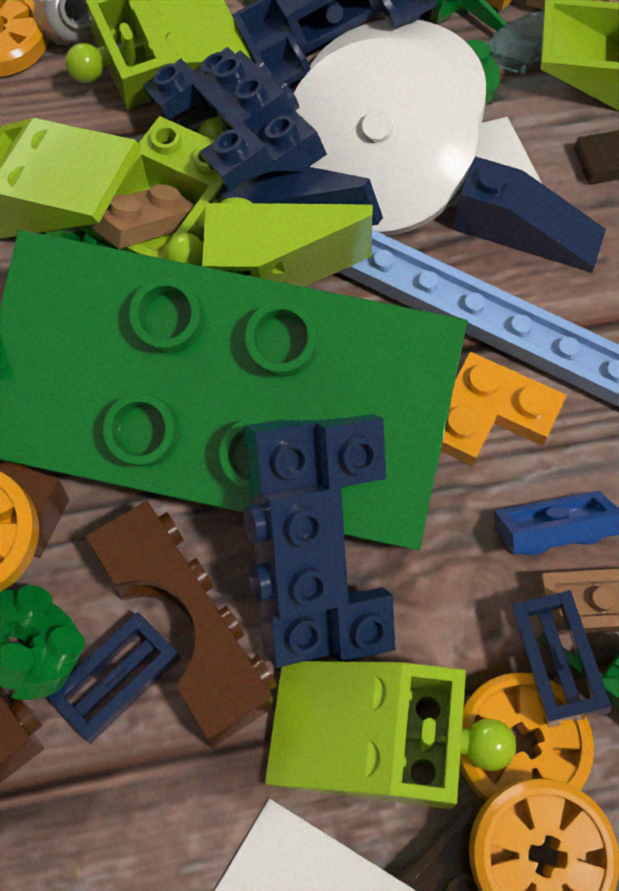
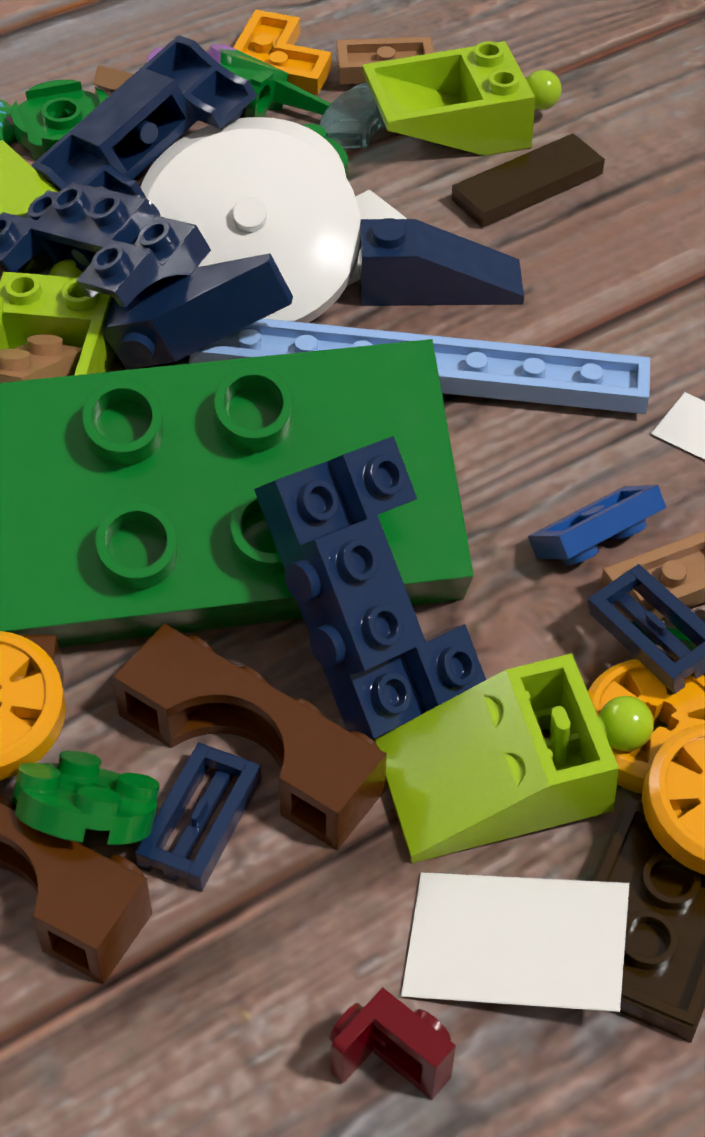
camera: 20 degrees left, 15 degrees down
(278, 240) = (207, 326): lime slope -> none
(498, 396) = (494, 438): light orange plate -> none

